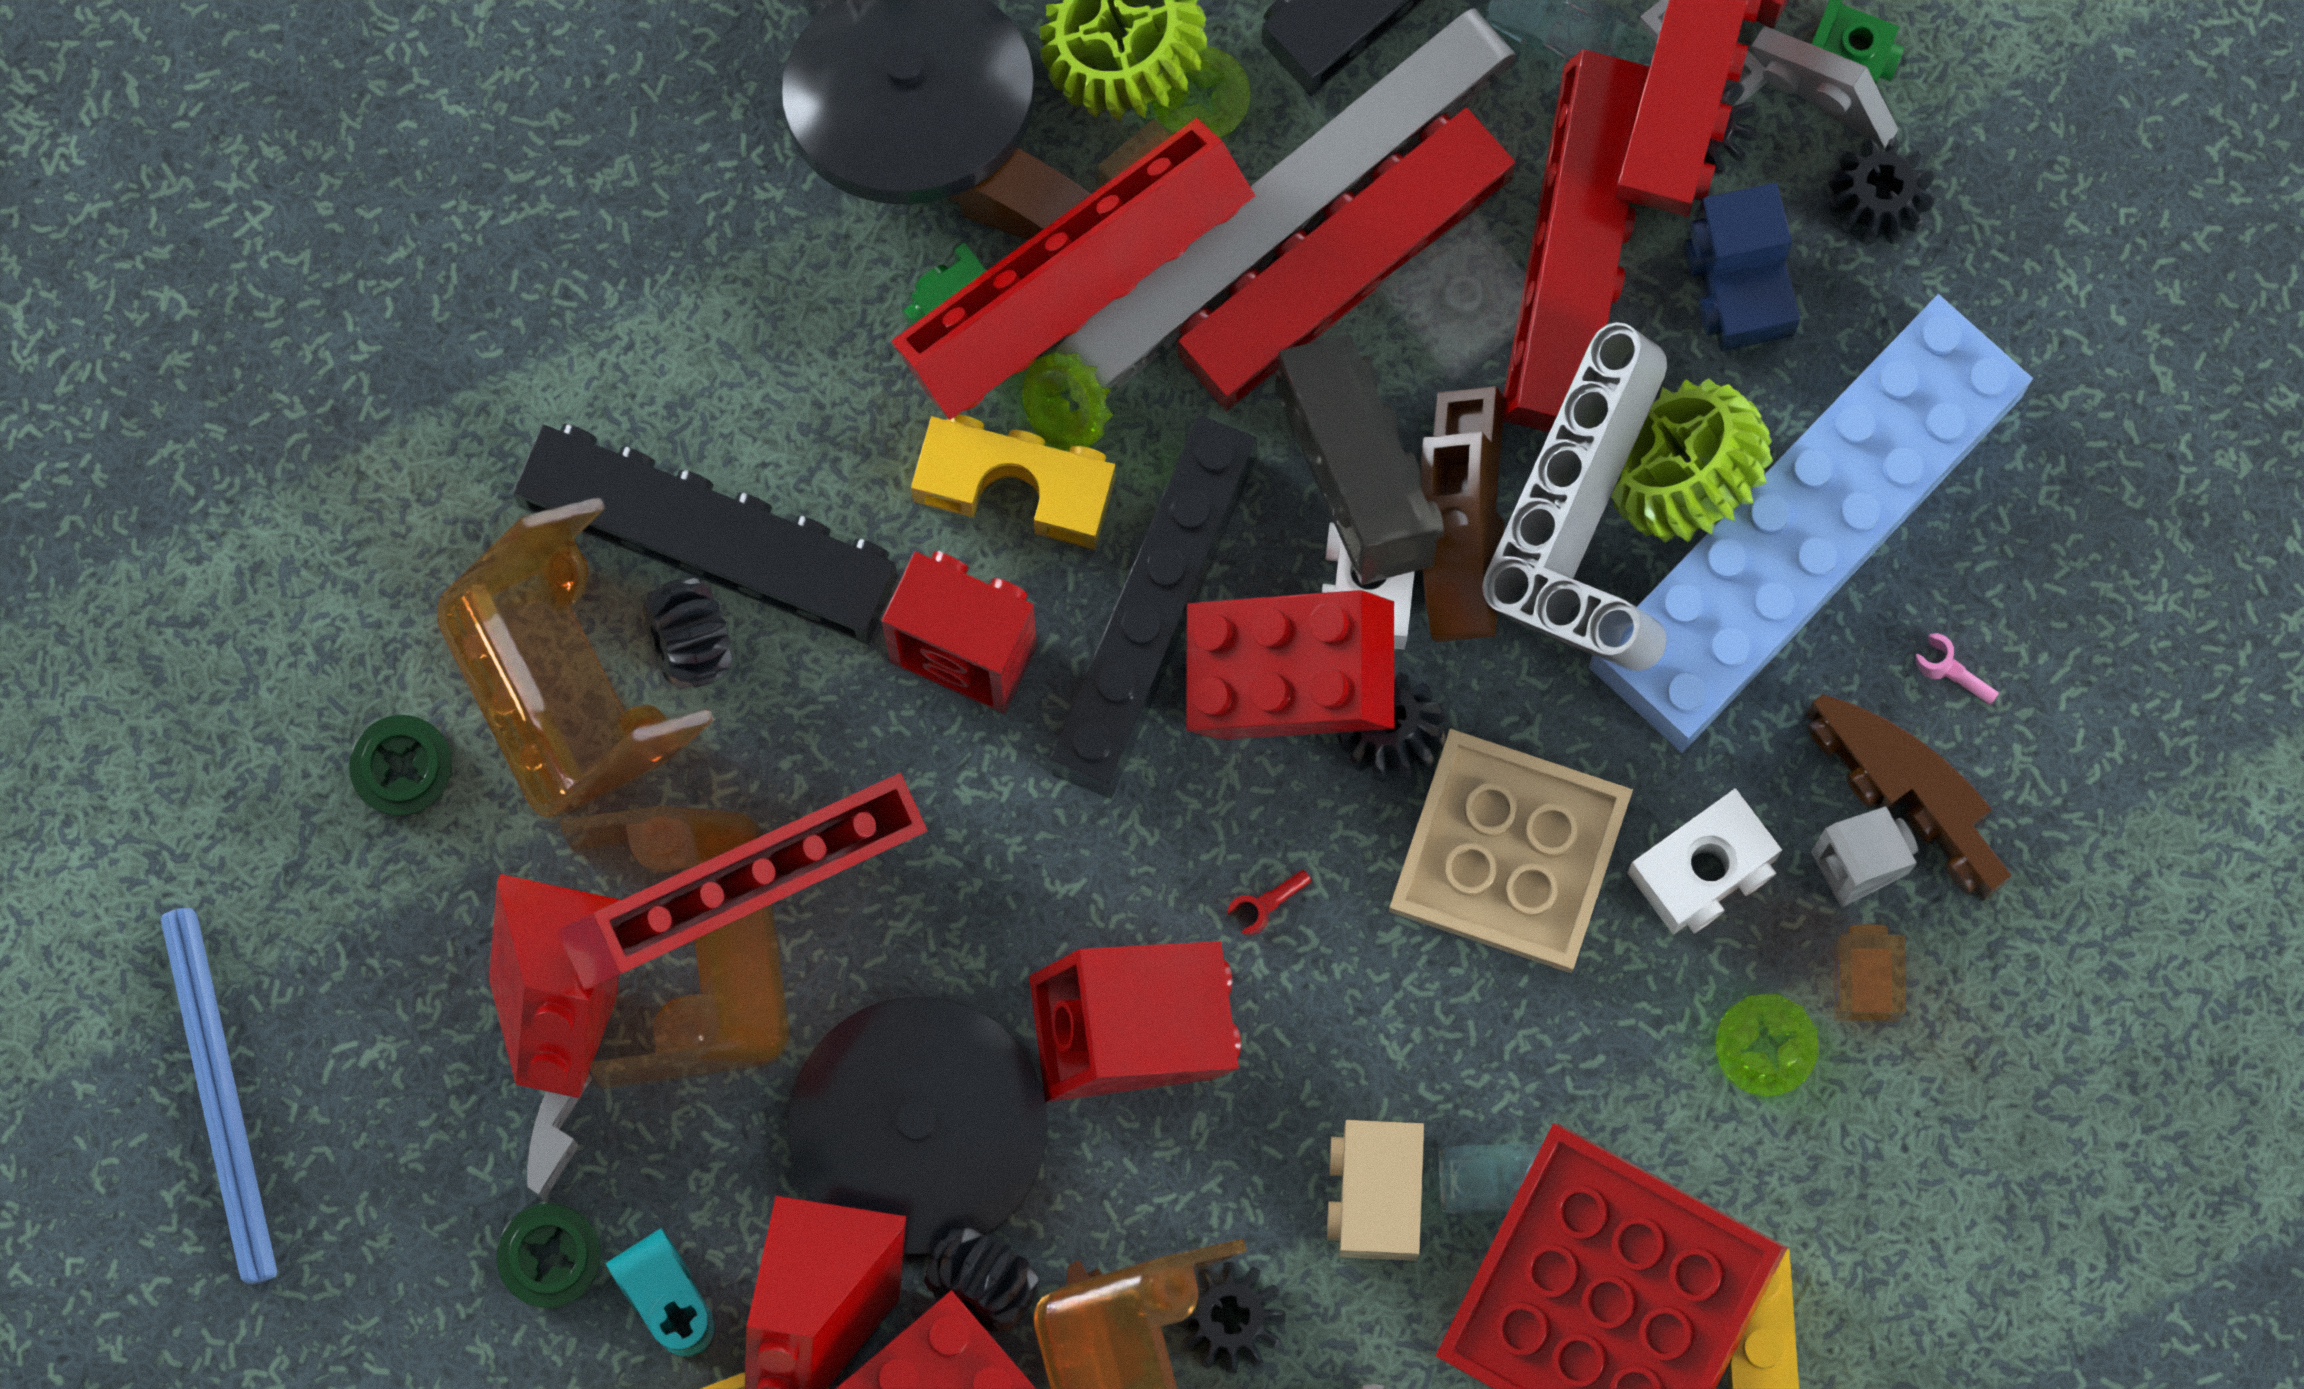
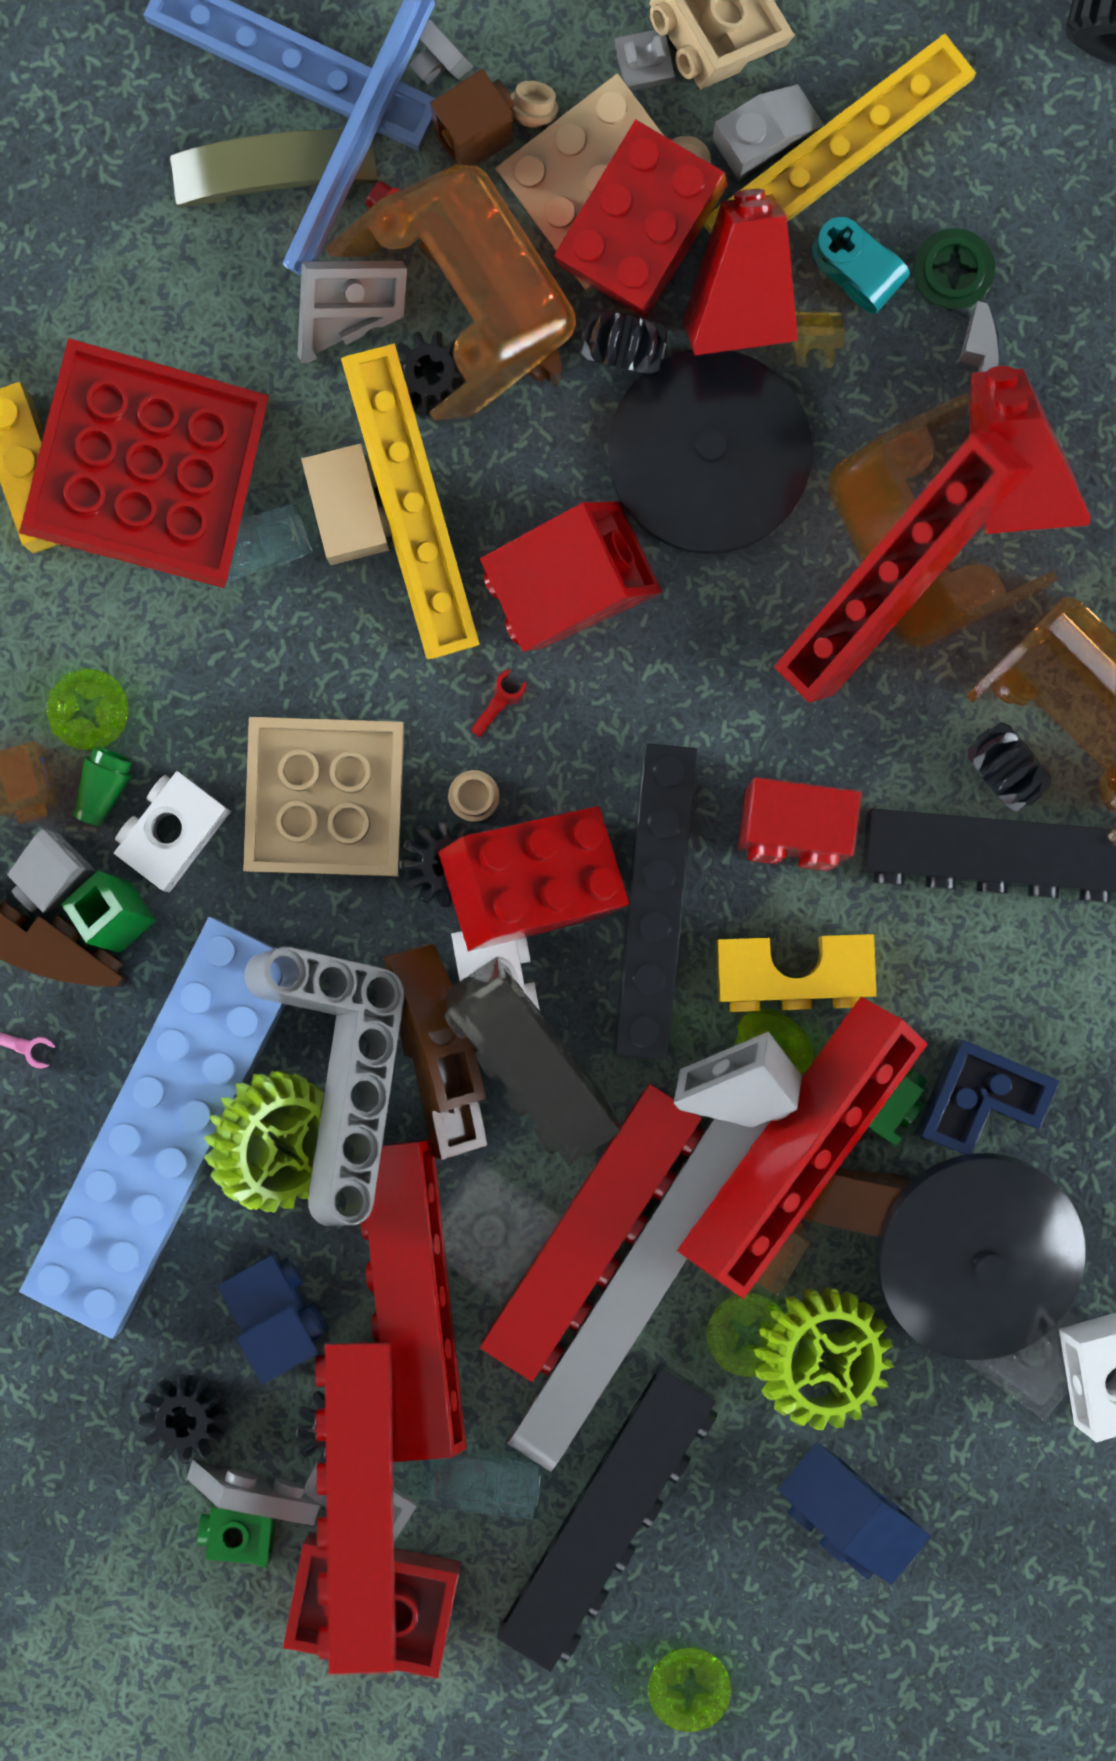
camera: 165 degrees right, 10 degrees up
(739, 1224) = (819, 331): none -> clear yellow tile
(846, 285) = (973, 1085): none -> dark blue brick
(1123, 355) = (741, 1084): none -> light grey slope
(1301, 1163) = (410, 501): none -> yellow plate
(1330, 800) = (473, 796): none -> tan plate
(1773, 947) = (101, 784): none -> green cone
(1807, 785) = (108, 912): none -> green brick

